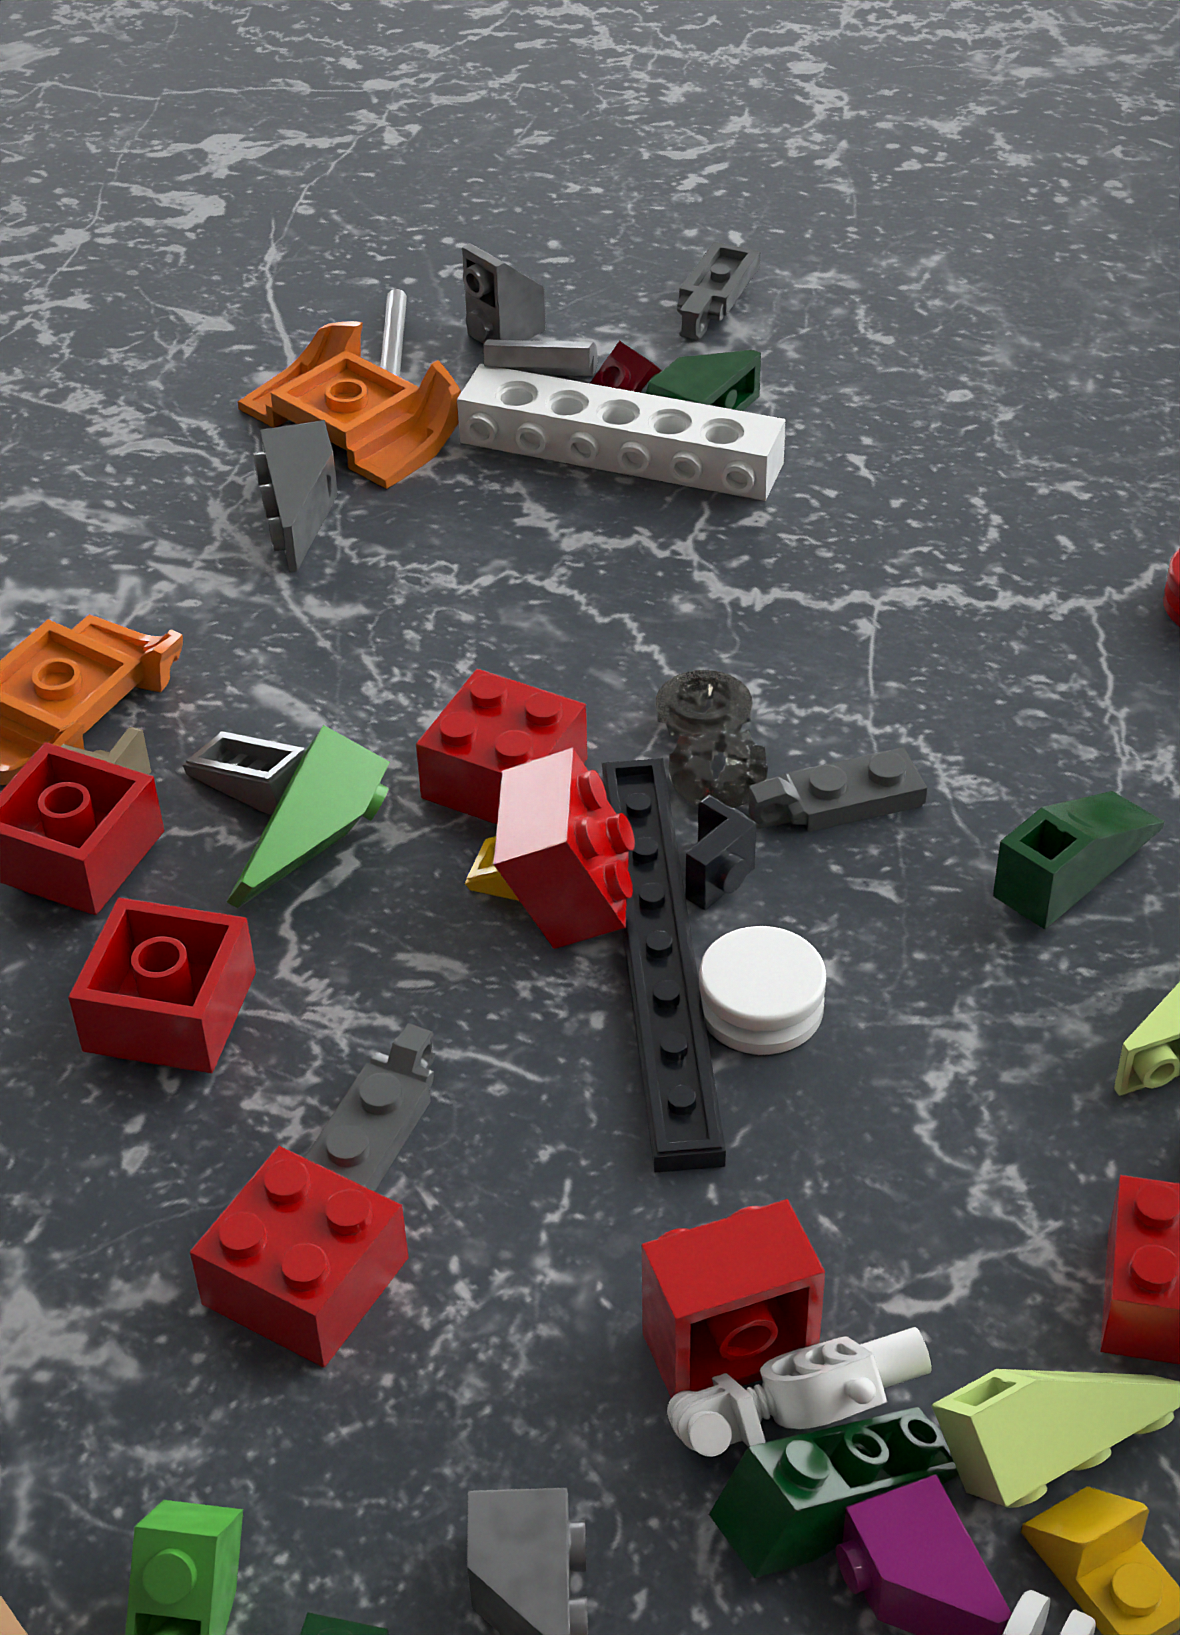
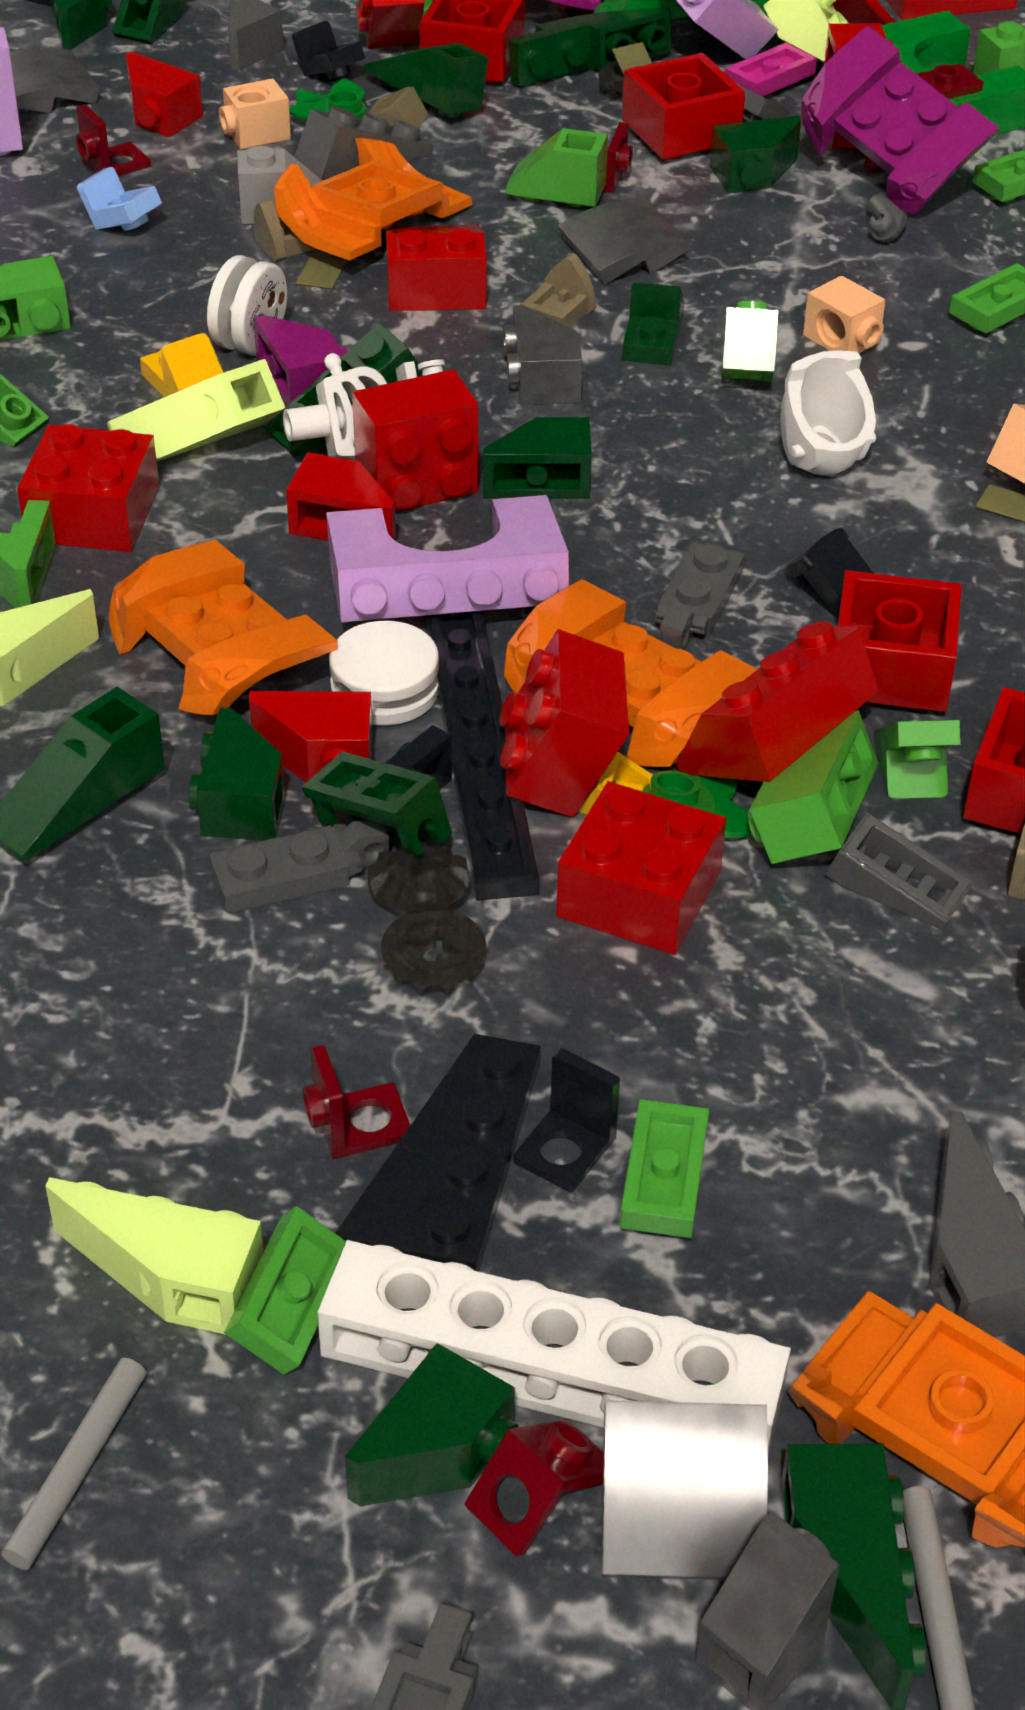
camera: 175 degrees right, 0 degrees up
(128, 1362) = (827, 413): none -> white helmet
(188, 858) = (915, 757): none -> bright green slope
(205, 1126) = (826, 565): none -> black tile
(300, 1255) = (725, 489): red brick -> none
(333, 888) = (782, 706): none -> red slope
(422, 837) = (703, 793): none -> green plate
(438, 332) = (853, 1510): none -> dark green slope
(469, 979) = (663, 683): none -> orange piece
(521, 539) = (664, 1168): none -> bright green plate
(548, 1332) = (540, 459): none -> dark green slope
(583, 563) = (582, 1111): none -> black bracket
(685, 558) = (452, 1163): none -> black wing
(765, 785) = (380, 794): none -> dark green hinge
(769, 1070) = (389, 580): none -> lavender arch
(783, 584) = (332, 1110): none -> dark red bracket
(807, 466) = (286, 1291): none -> bright green plate
(837, 902) = (313, 726): none -> red slope
(855, 1245) = (331, 486): none -> red slope
(905, 852) = (240, 782): none -> dark green slope
(909, 486) = (169, 1255): none -> yellowish green slope
(941, 404) = (73, 1464): none -> light grey bar
(957, 1039) = (211, 623): none -> orange piece

